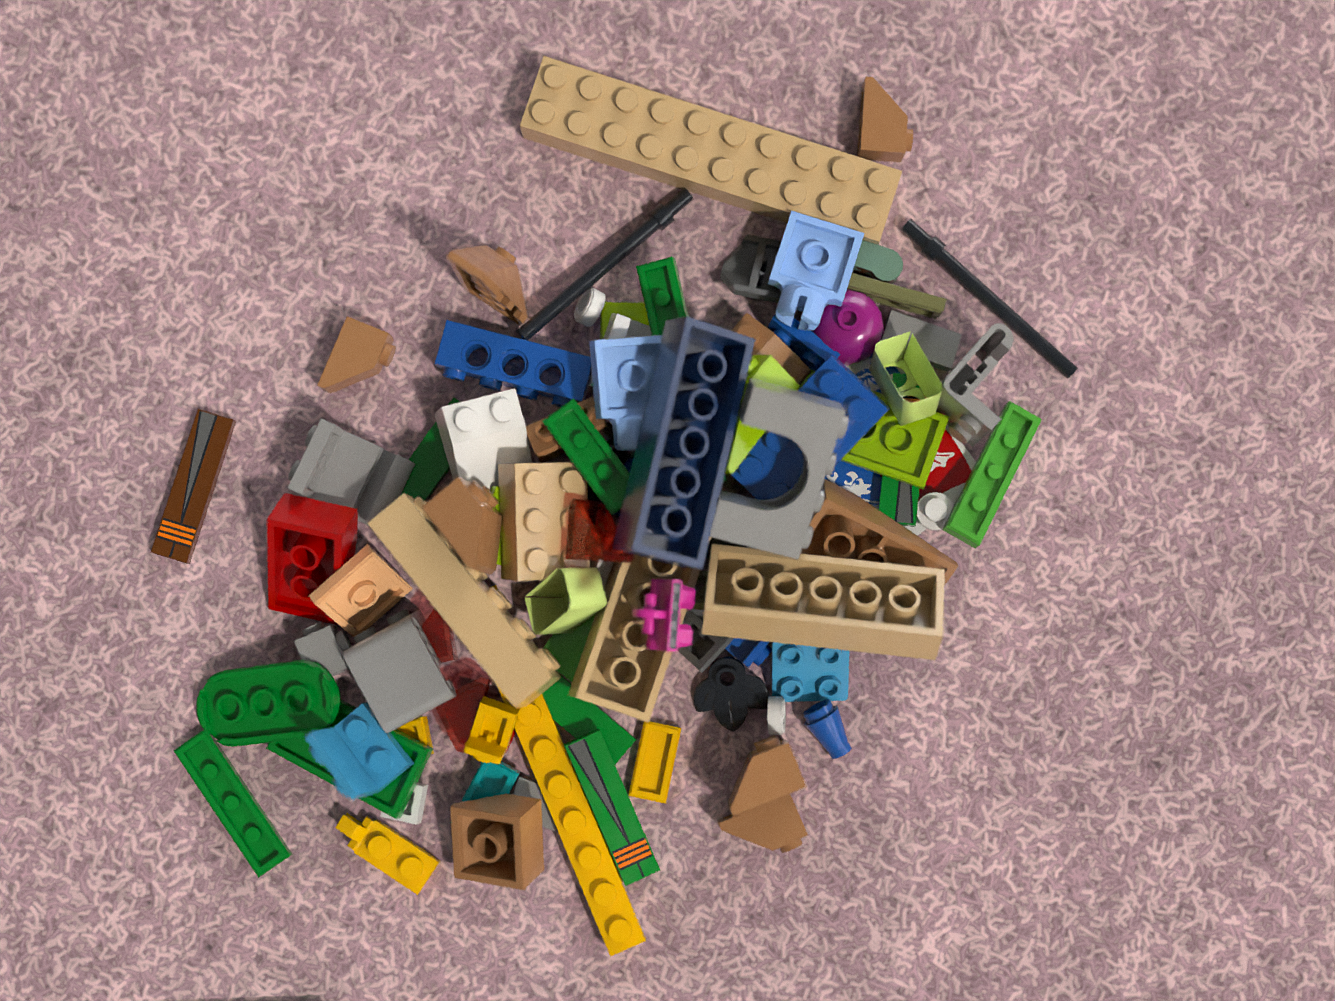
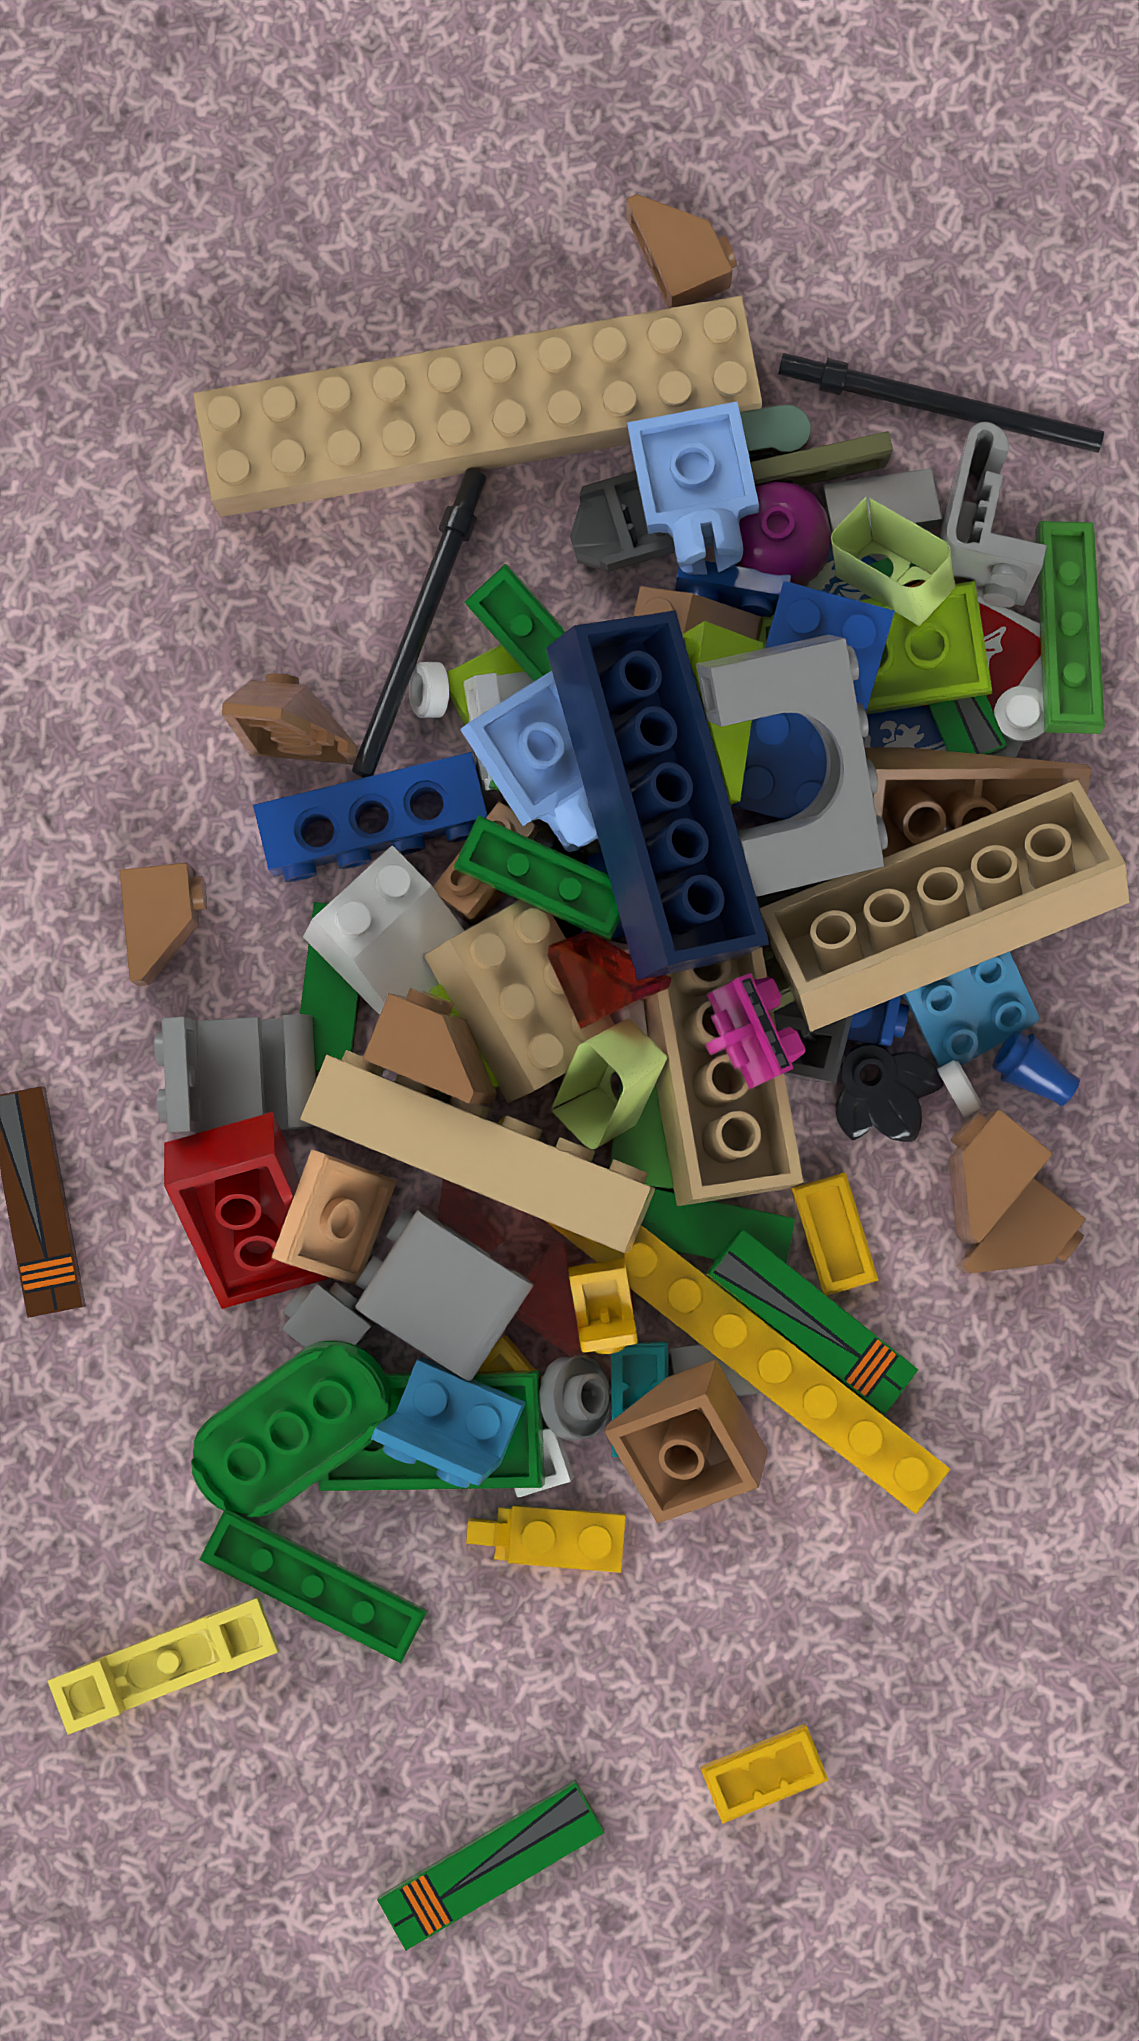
camera: 20 degrees left, 0 degrees up
(117, 801) = (163, 1664): none -> light yellow slope
(446, 776) = (575, 1397): none -> light grey plate

